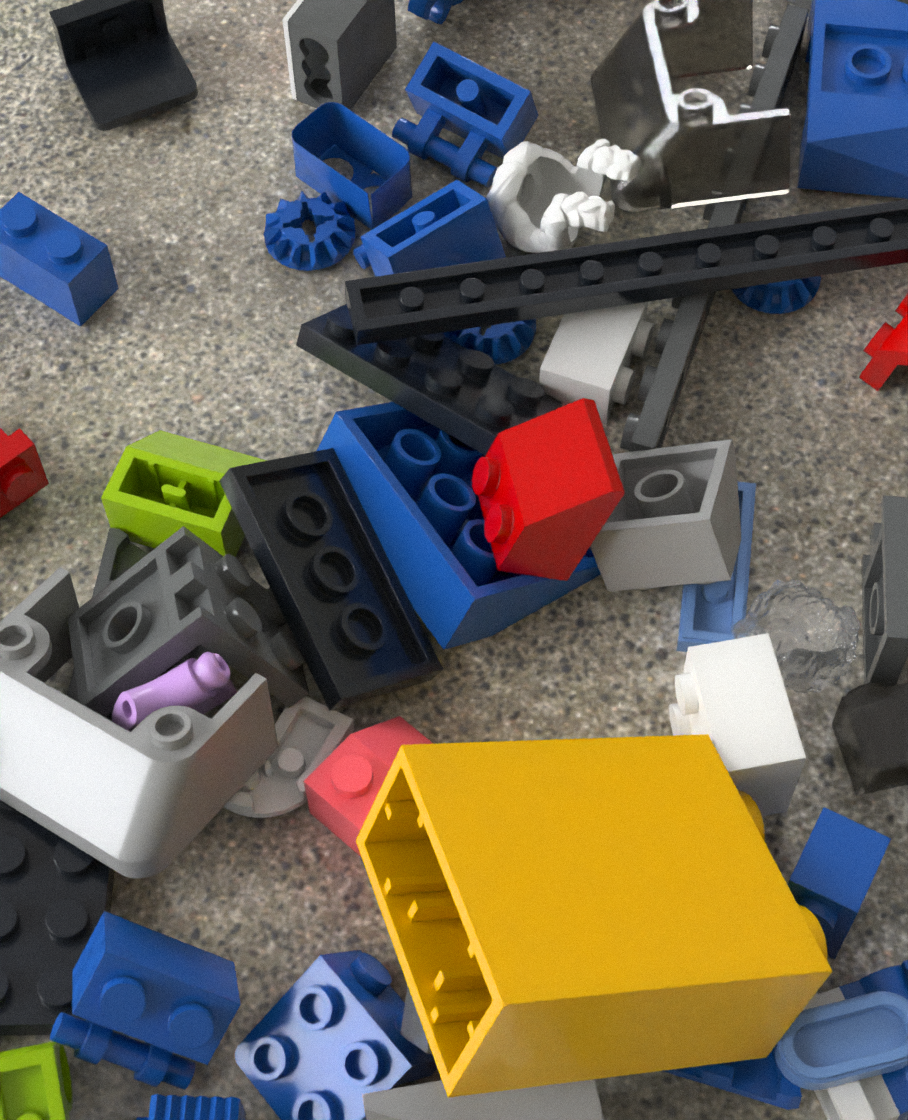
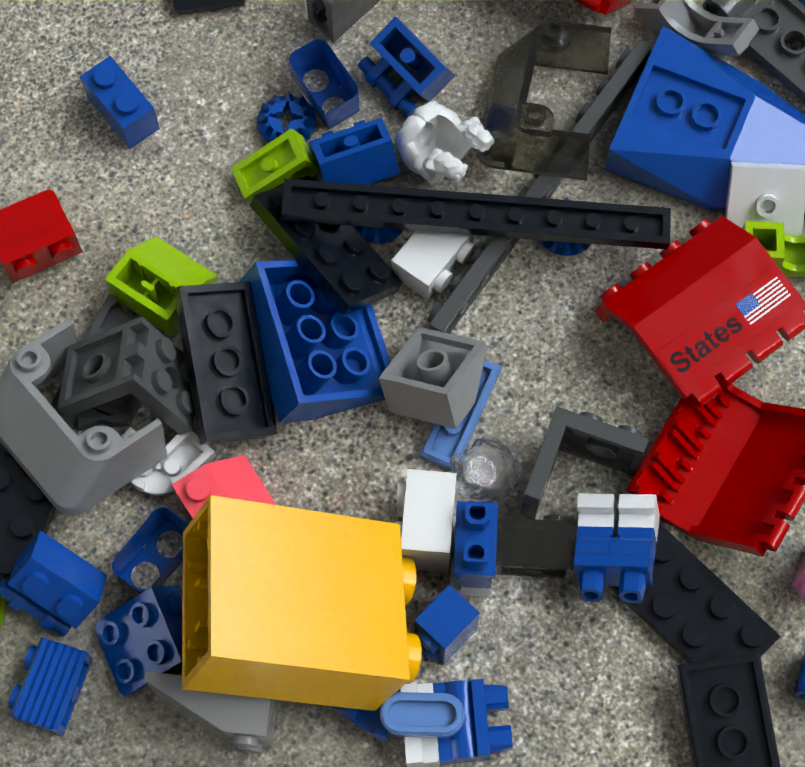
camera: 15 degrees right, 10 degrees up
(192, 684) = (115, 415): lavender arm -> none
(301, 849) = (132, 553): none -> blue piece
(309, 286) = (268, 166): none -> lime plate
(547, 490) = (362, 346): red slope -> none
(840, 746) = (474, 548): none -> blue hips

